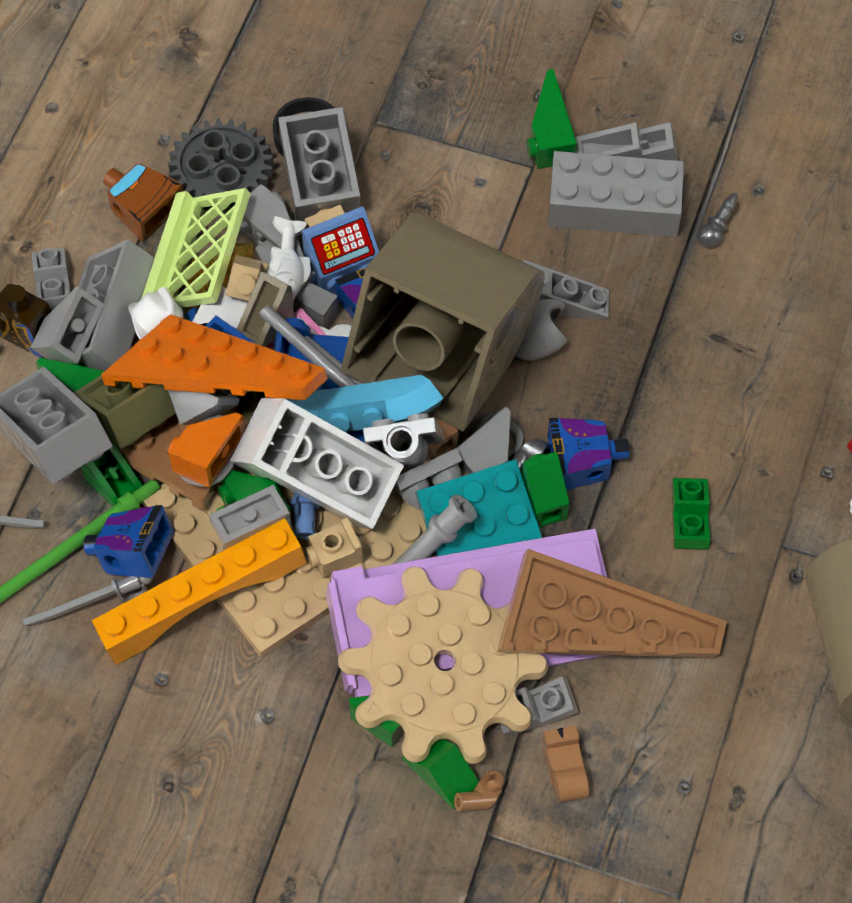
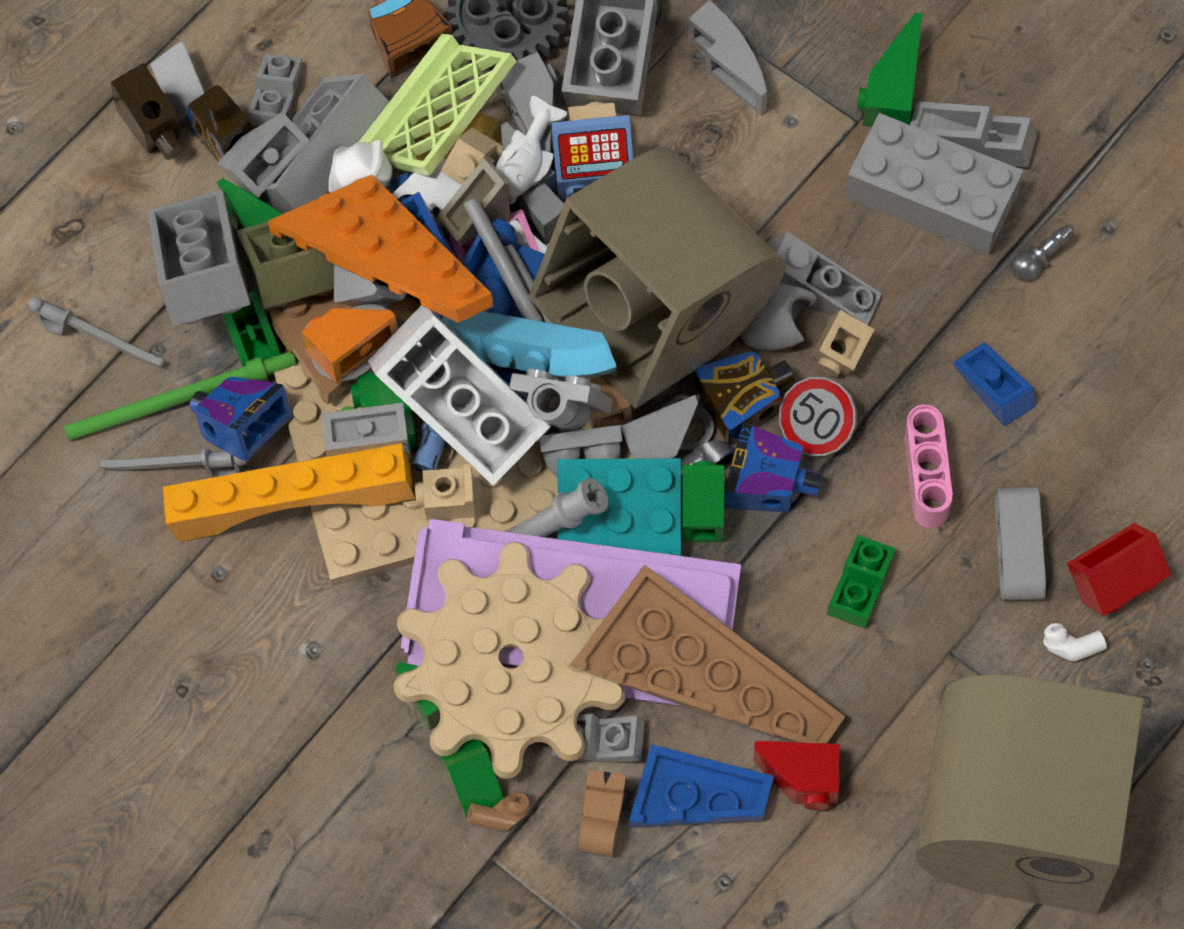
camera: 25 degrees right, 5 degrees up
(414, 145) = (728, 55): none -> light grey slope
(534, 396) = (741, 391): none -> torso
(603, 394) = (818, 415): none -> piece
(604, 329) = (852, 337): none -> tan brick
(633, 720) = (697, 790): none -> blue wing
(705, 393) = (925, 483): none -> bright pink beam
(711, 675) = (802, 770): none -> red slope
(727, 329) = (996, 383): none -> blue slope
(801, 444) = (1020, 543): none -> light grey beam

